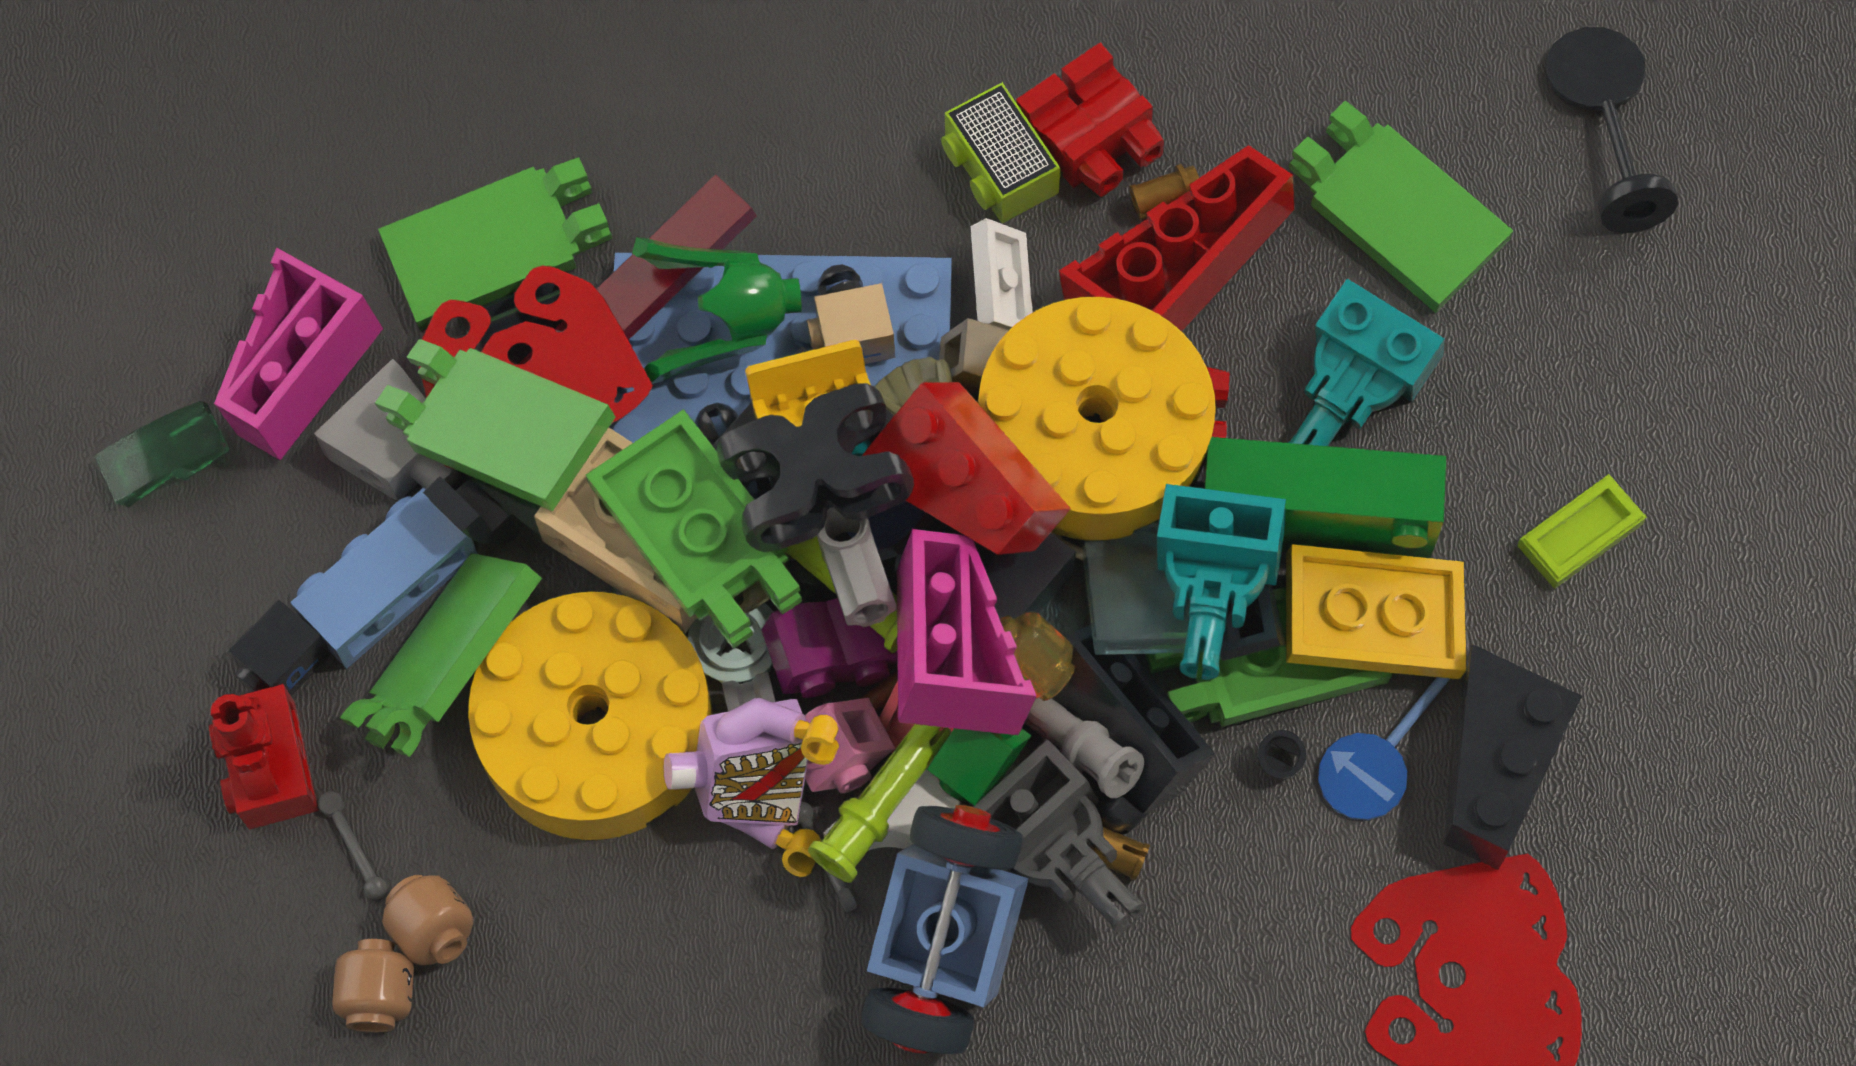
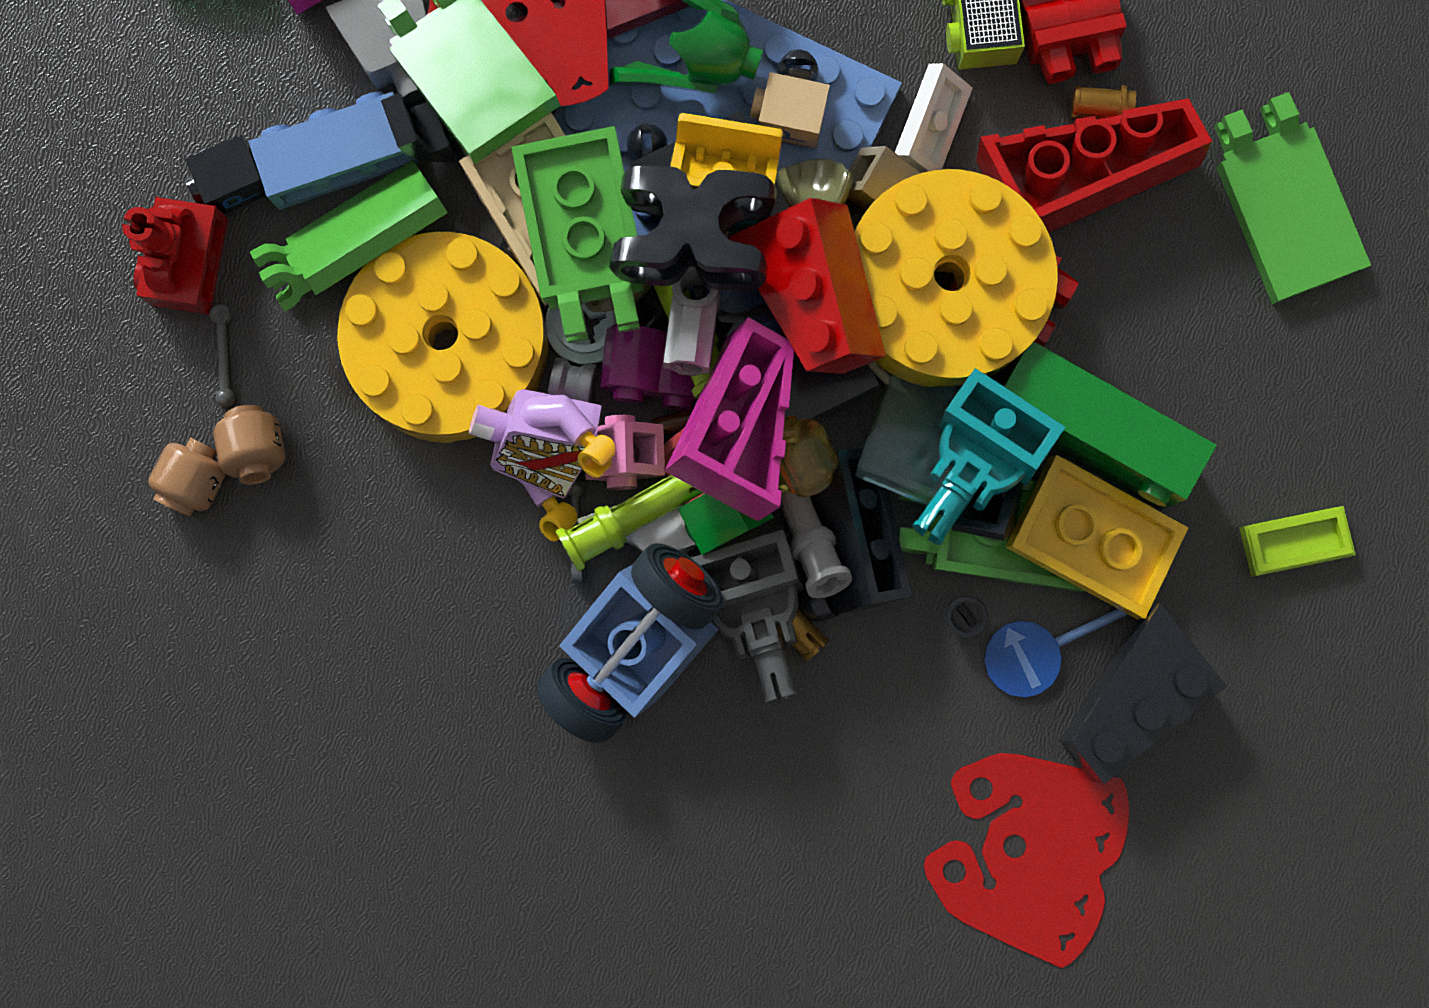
camera: 25 degrees right, 15 degrees up
(1366, 357) = (1195, 321): teal brick -> none

